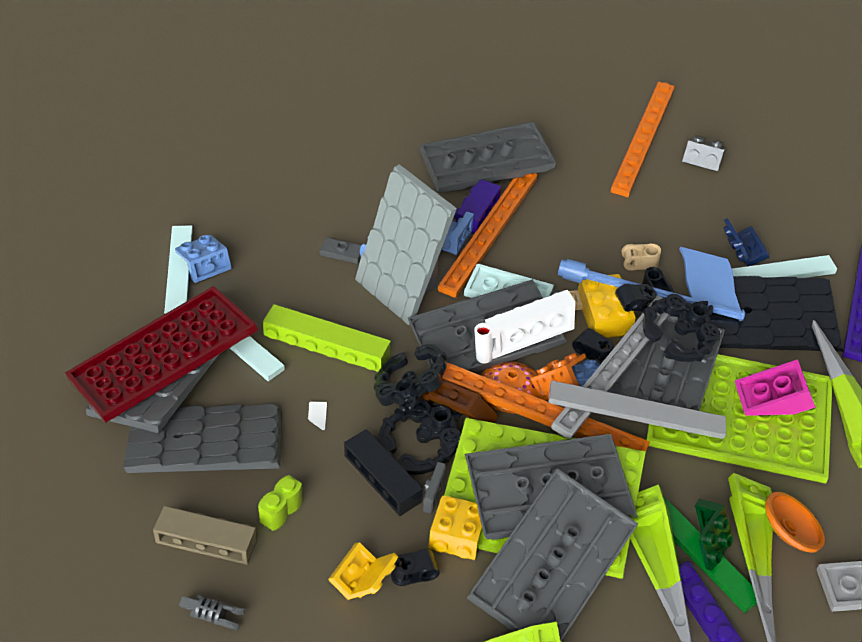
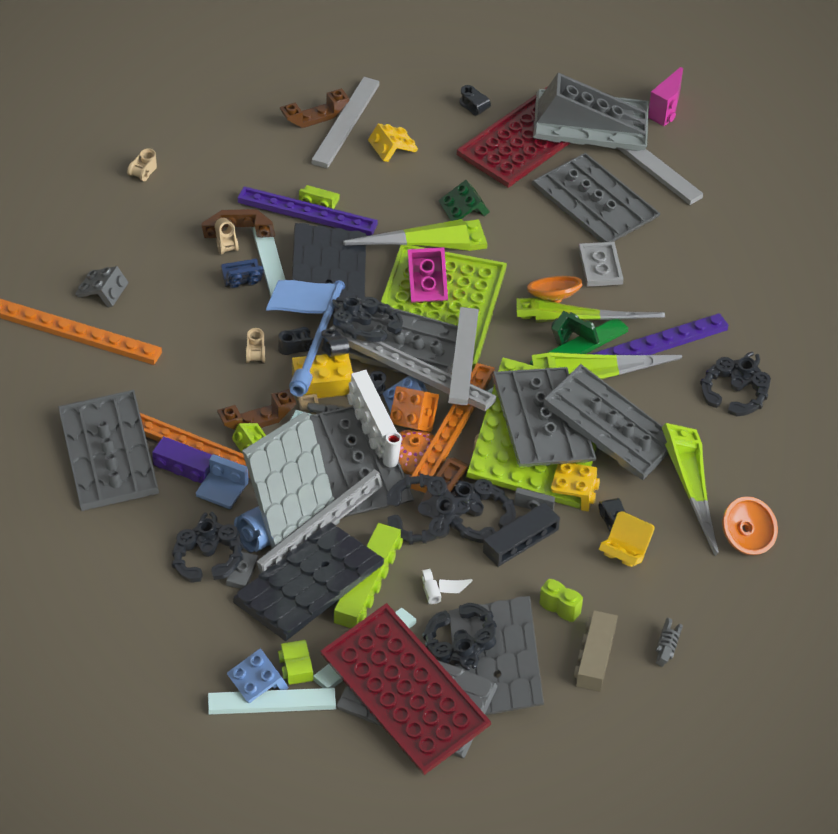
camera: 90 degrees left, 0 degrees up
(215, 409) = (464, 648): none -> black piece
(225, 280) = (296, 662): none -> lime brick
(311, 390) = (430, 587): none -> white bar
(318, 290) = (308, 581): none -> black piece
(365, 223) = (207, 536): none -> black piece
(393, 298) = (331, 513): none -> light grey tile
(510, 255) = (247, 434): none -> lime bracket
(538, 253) = (280, 405): none -> reddish brown slope
(796, 228) = (226, 239): none -> tan piece
(816, 226) = (240, 218): none -> reddish brown slope

